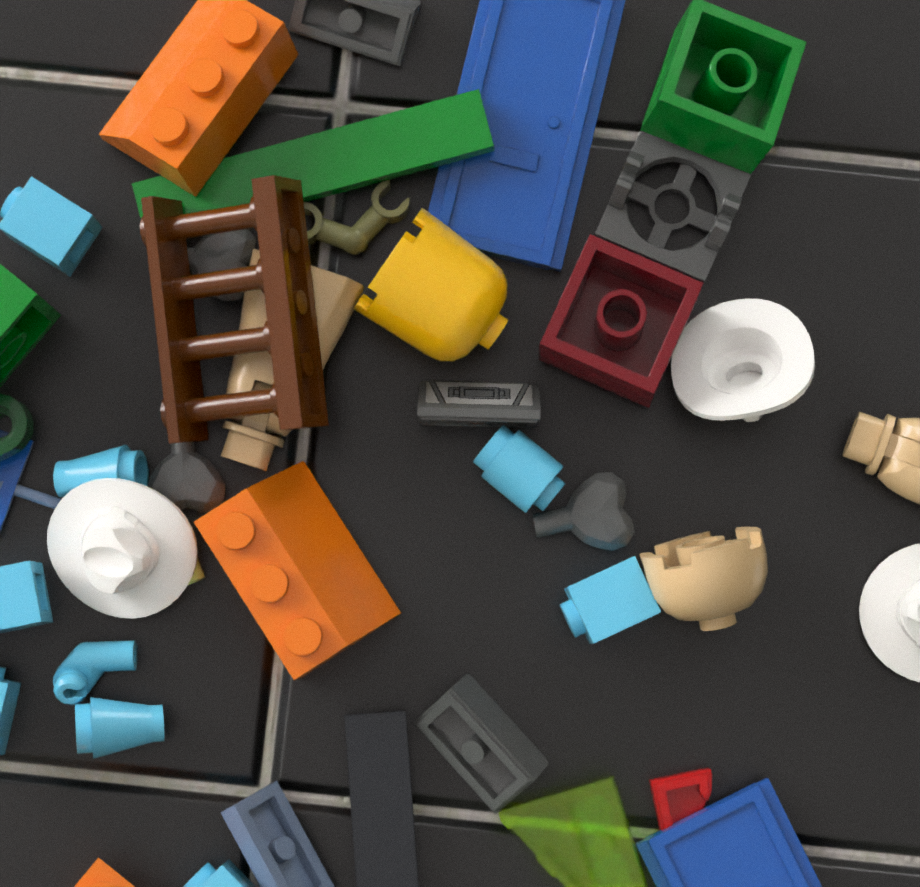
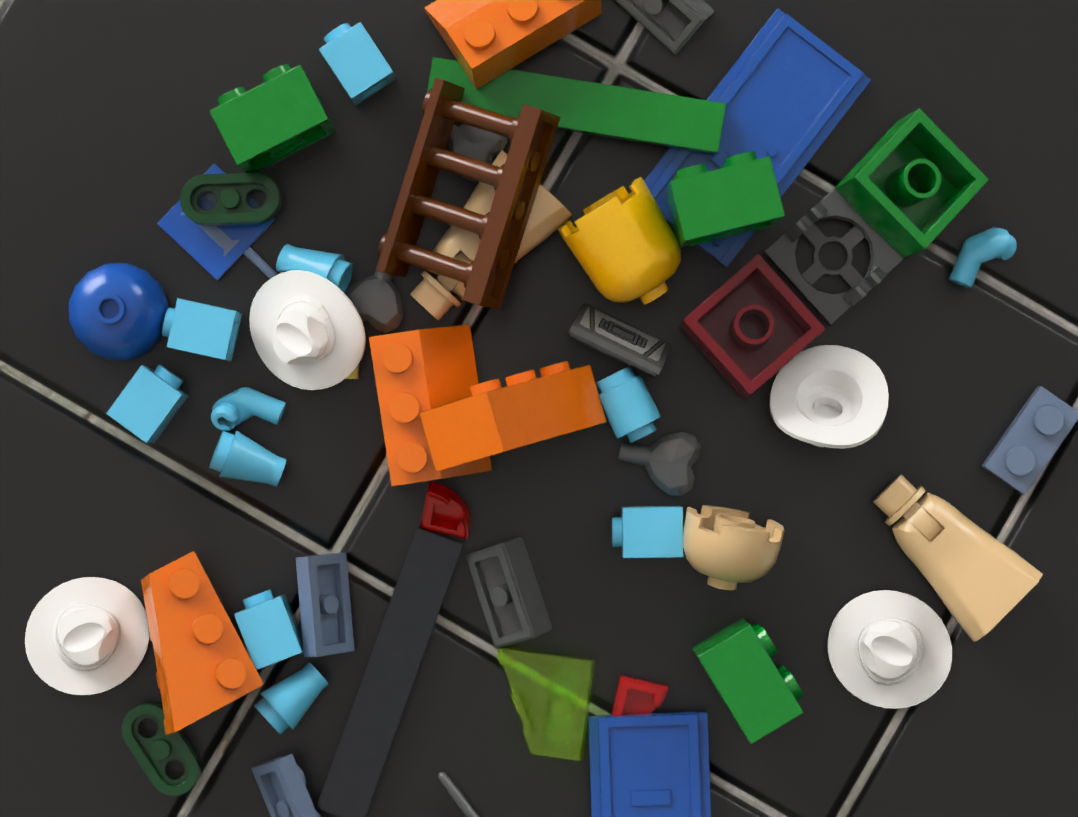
camera: 25 degrees right, 5 degrees up
(356, 238) = (584, 173): olive arm -> none
(369, 683) = (445, 512): none -> red tile
(395, 536) = (513, 415): none -> orange wedge
(525, 190) = (723, 200): none -> green brick
(799, 719) = (748, 680): none -> green brick
(830, 126) = (979, 249): none -> medium azure arm

